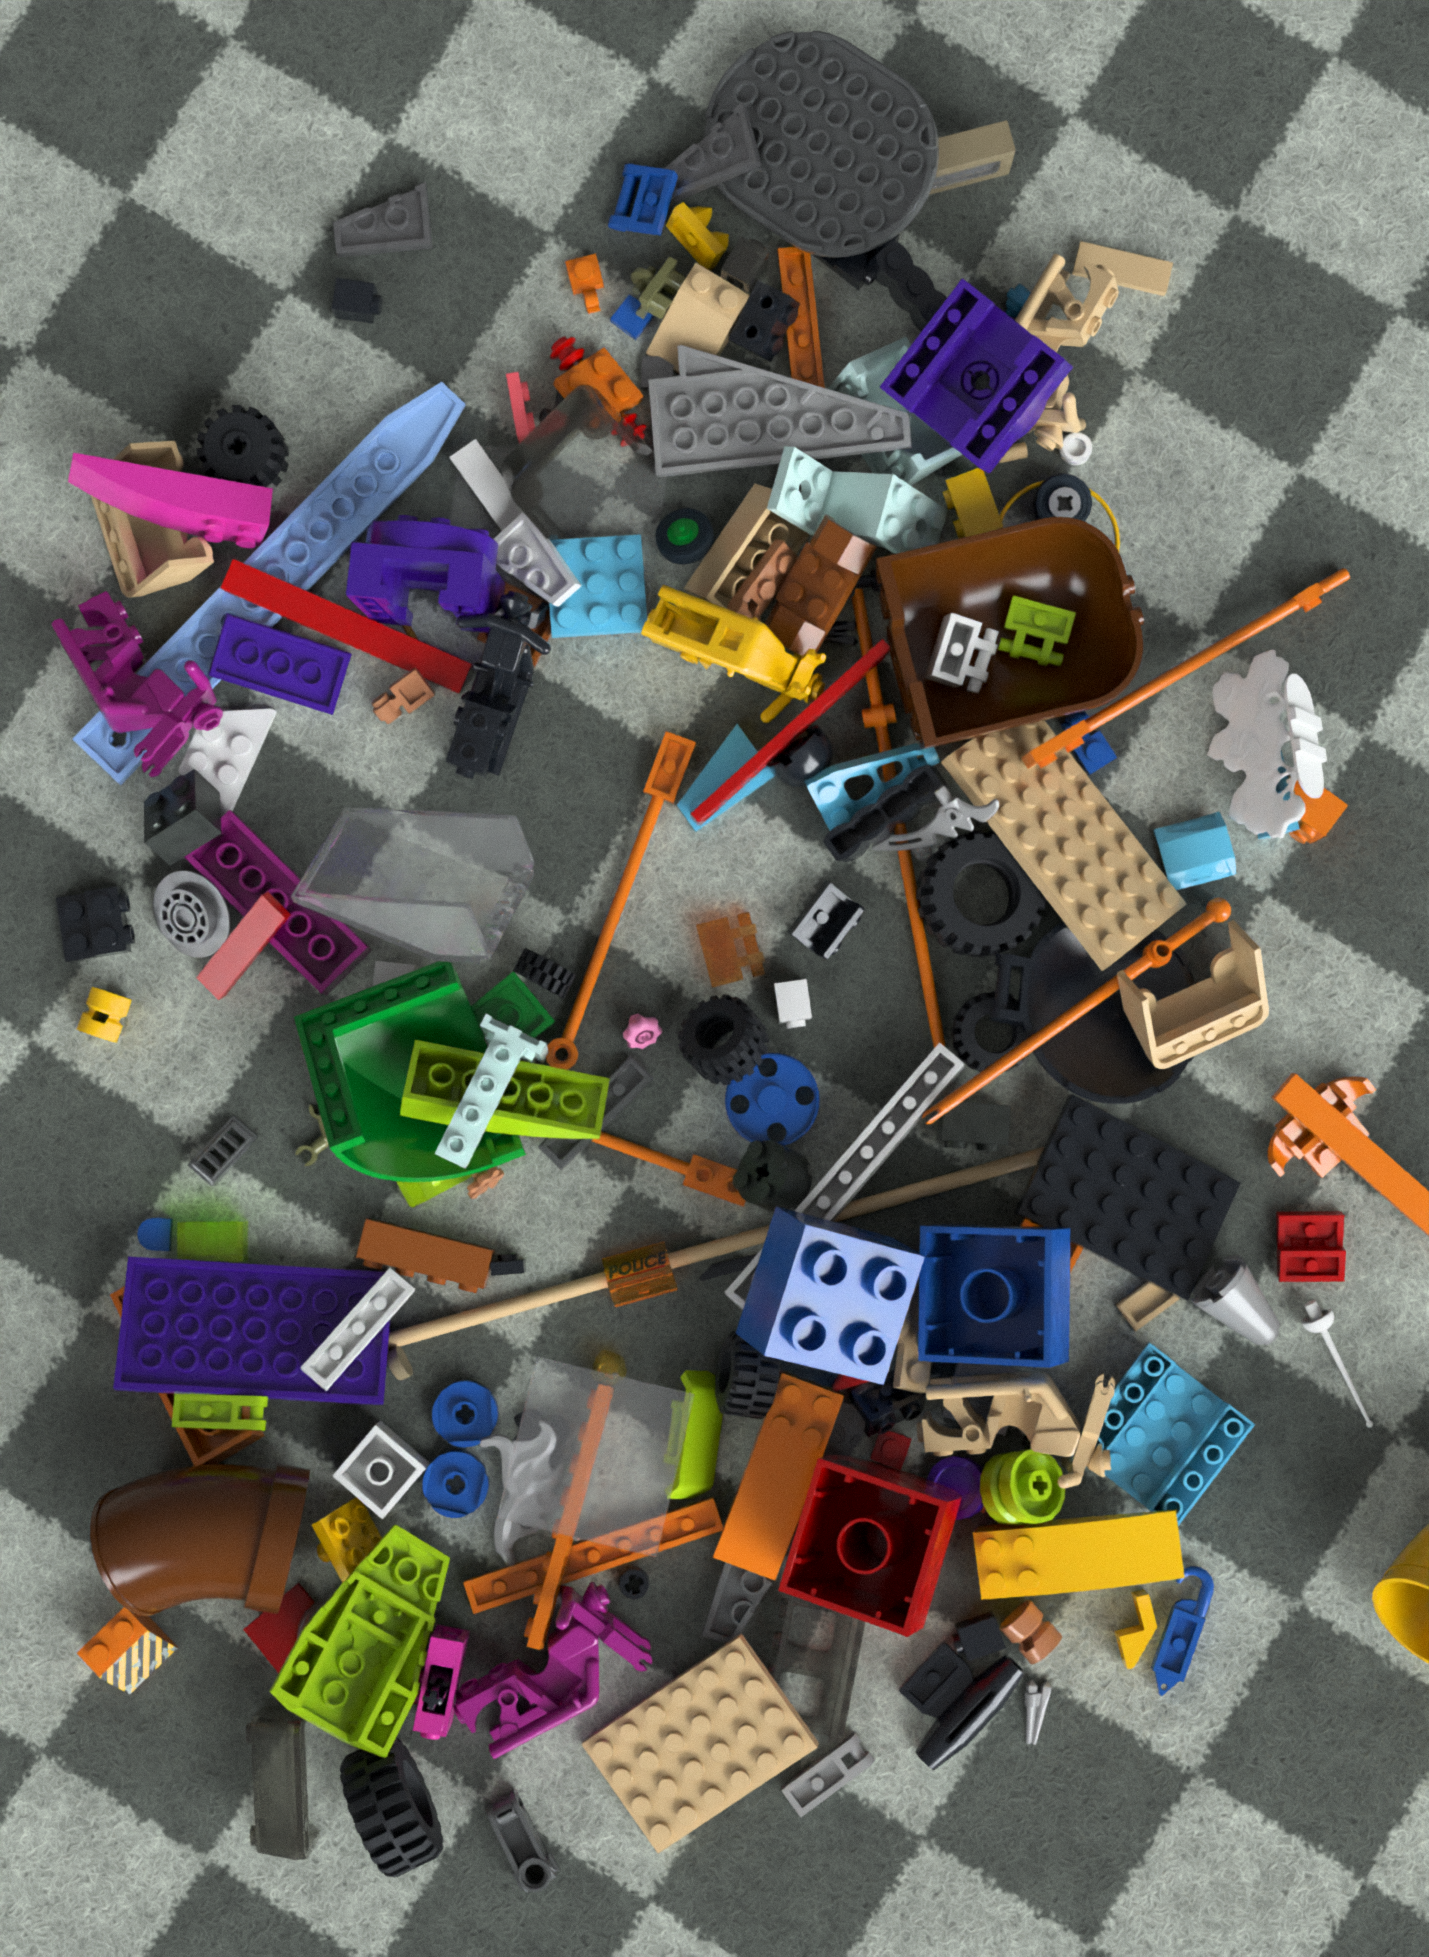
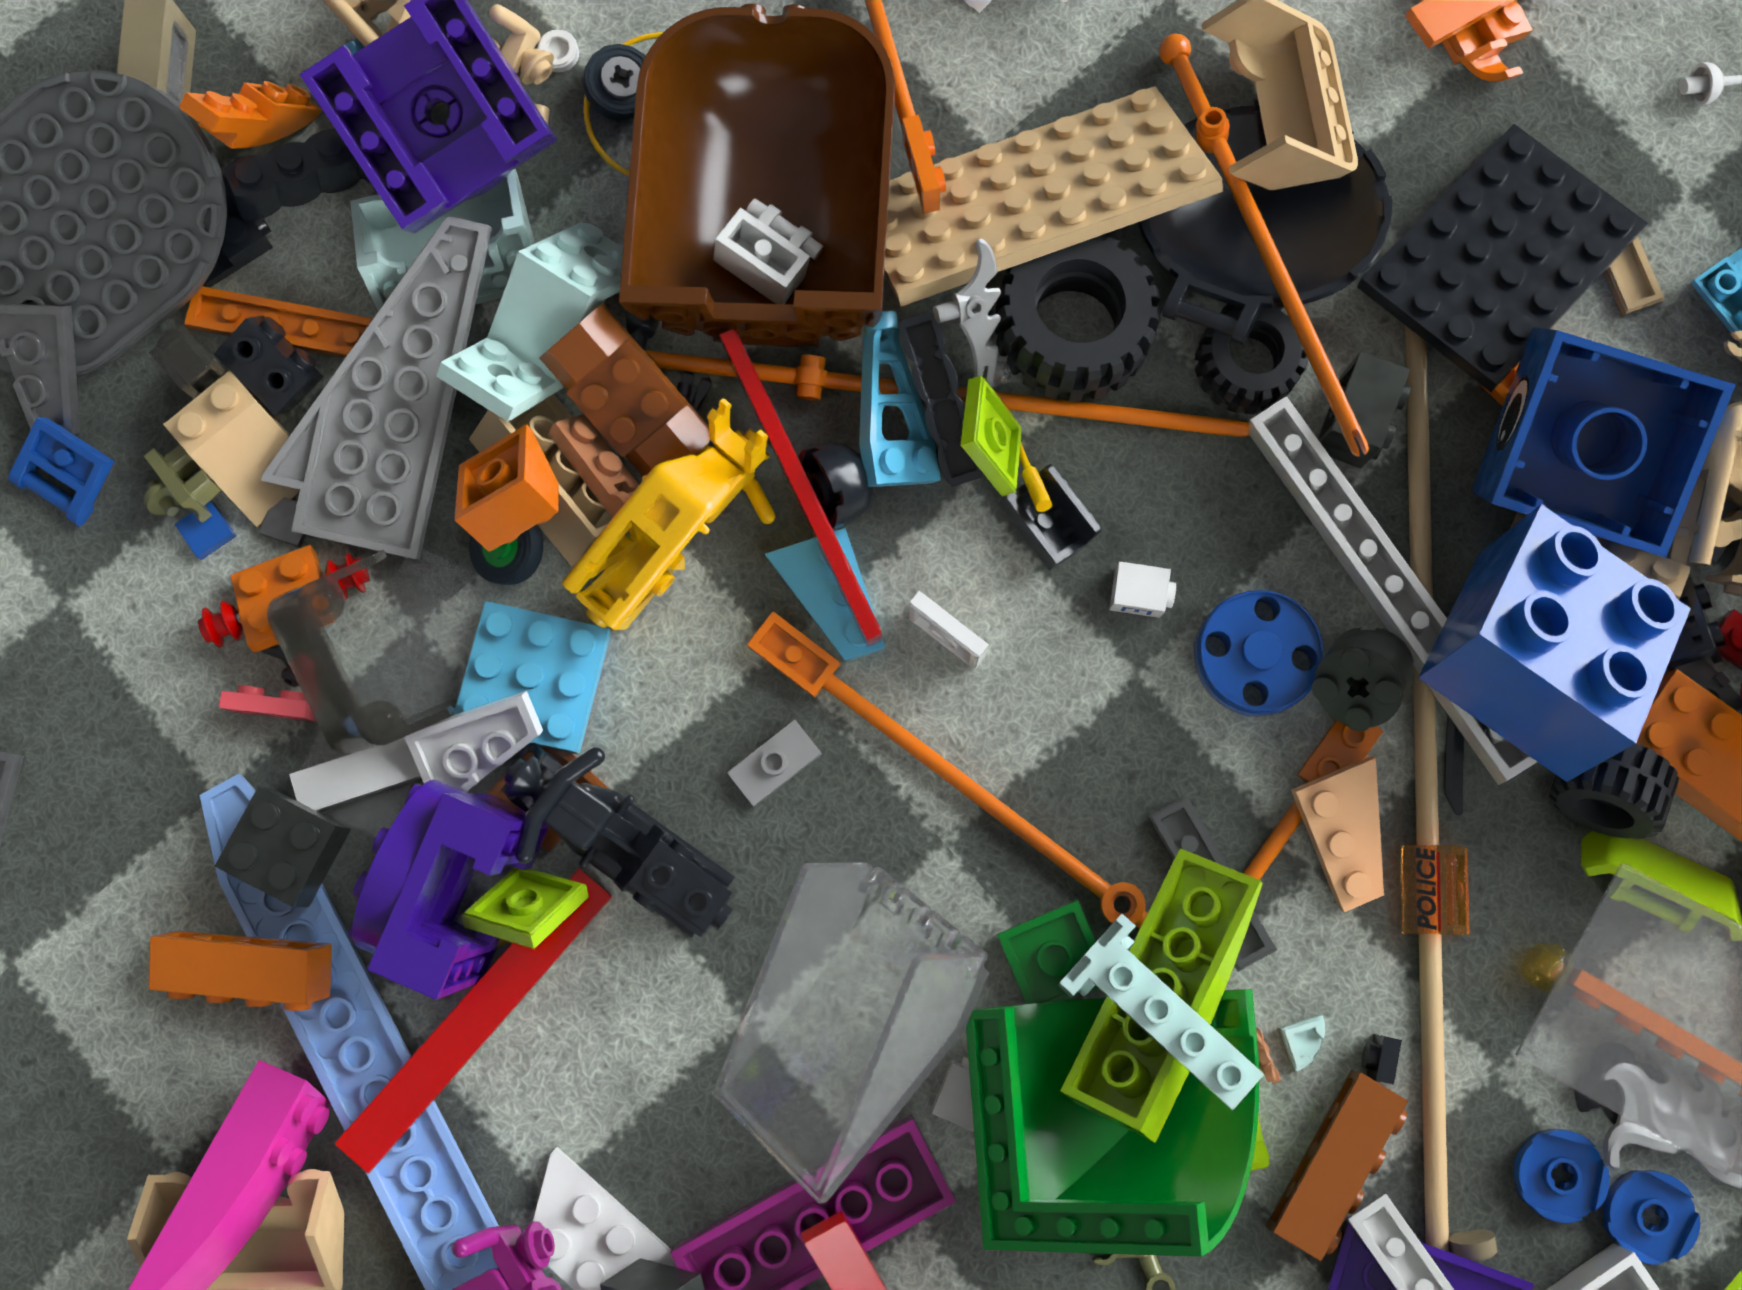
camera: 70 degrees left, 5 degrees down
(259, 460) = (214, 1065): black wheel -> none
(279, 664) = (495, 1124): dark purple tile -> none
(331, 453) = (240, 968): none -> orange brick
(356, 300) = (53, 875): black brick -> none
(409, 691) = (589, 959): nougat plate -> none
(421, 453) = (282, 847): none -> pearl dark grey brick
(431, 635) = (525, 906): none -> lime tile
(505, 1209) = (1303, 1040): none -> light aqua tile
(544, 973) = (1013, 894): black tyre -> none
(586, 278) = (136, 572): orange plate -> none
(588, 778) = (774, 763): none -> light grey plate
(641, 1031) = (1122, 792): bright pink piece -> none
(662, 1197) = (1345, 831): none -> light nougat wing
(690, 230) = (125, 422): yellow tile -> none
(708, 1025) = (1137, 695): black tyre -> none
(717, 869) = (947, 630): none -> white tile
(720, 523) = (506, 490): none -> orange slope
(720, 951) = (1046, 661): clear orange plate -> none
(851, 897) = (1034, 484): none -> yellow piece
(869, 858) = (991, 436): none -> lime tile
(943, 246) = (254, 115): none -> orange slope
(972, 503) = (586, 186): yellow brick -> none
(1038, 621) = (756, 149): lime plate -> none
(1095, 751) = (945, 140): blue plate -> none
(1196, 851) = (1094, 52): medium azure slope -> none
(1237, 1301) = (1660, 167): light grey cone -> none
(1310, 1246) = (1611, 68): red slope -> none

